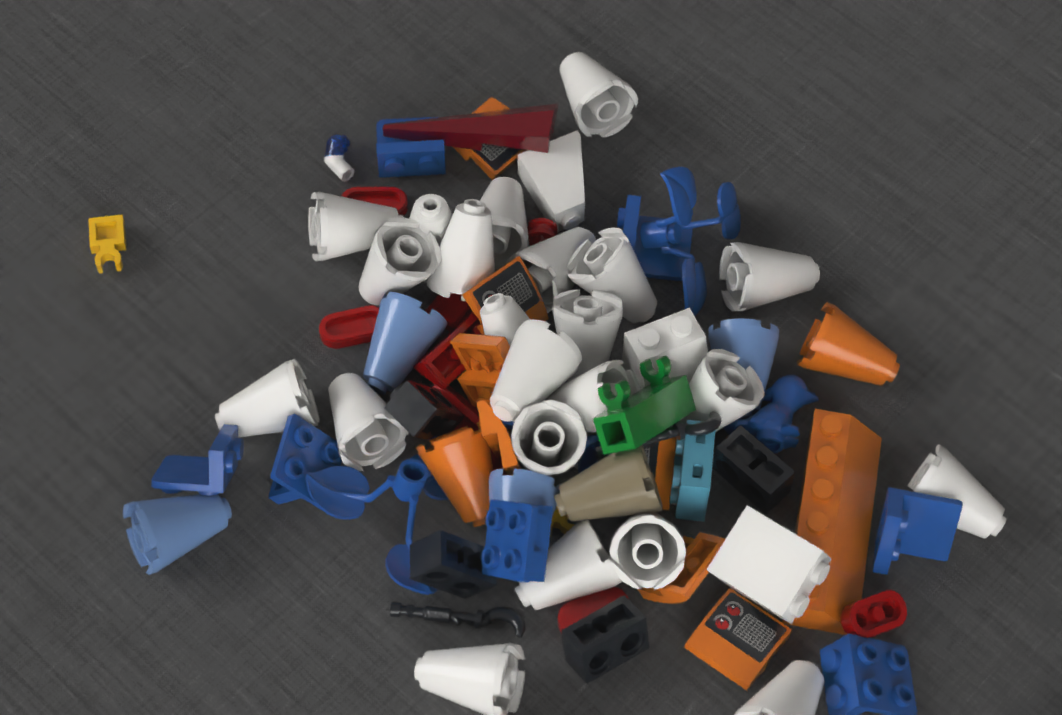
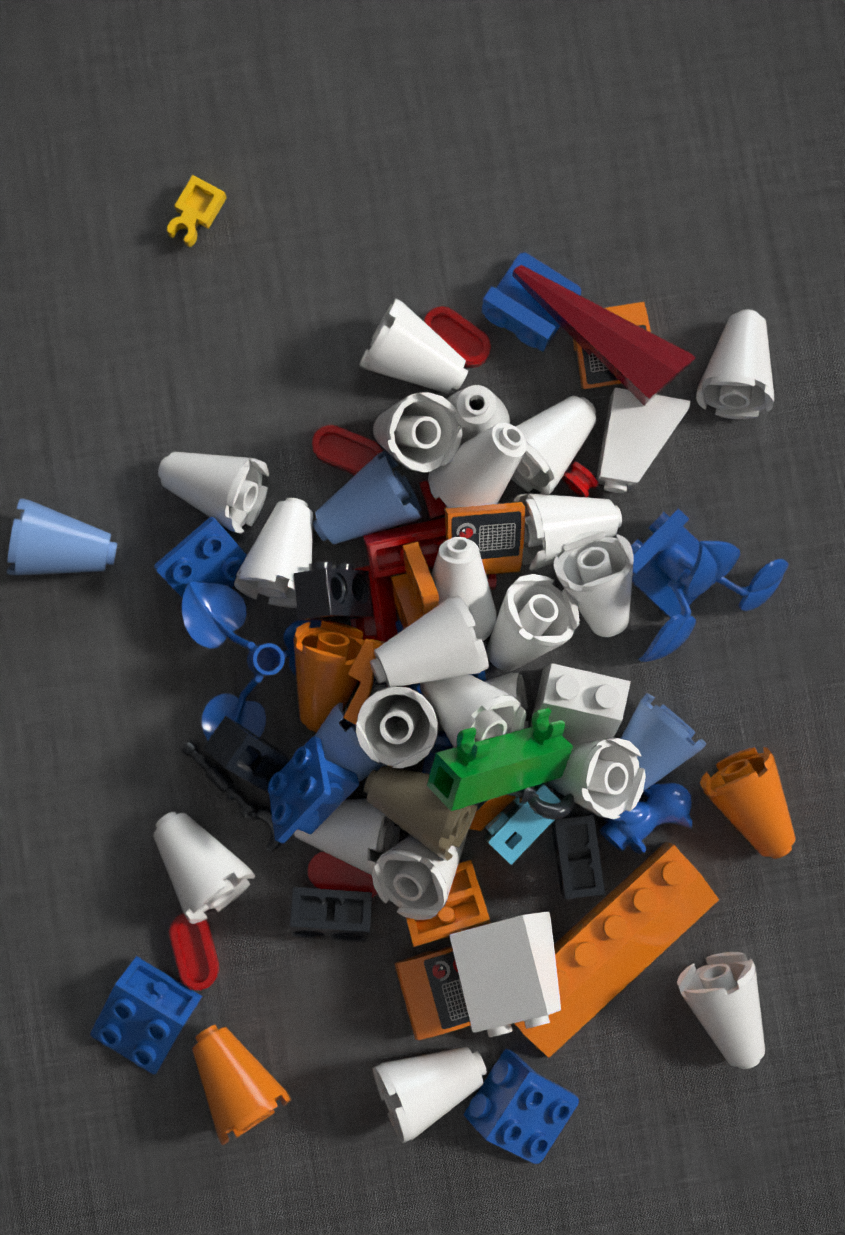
camera: 35 degrees right, 25 degrees up
(202, 474) = (111, 505): blue bracket -> none
(334, 154) = (456, 261): arm -> none
(763, 275) = (741, 674): white cone -> none
(874, 614) = (571, 1061): red plate -> none
(915, 526) = (667, 1006): blue bracket -> none

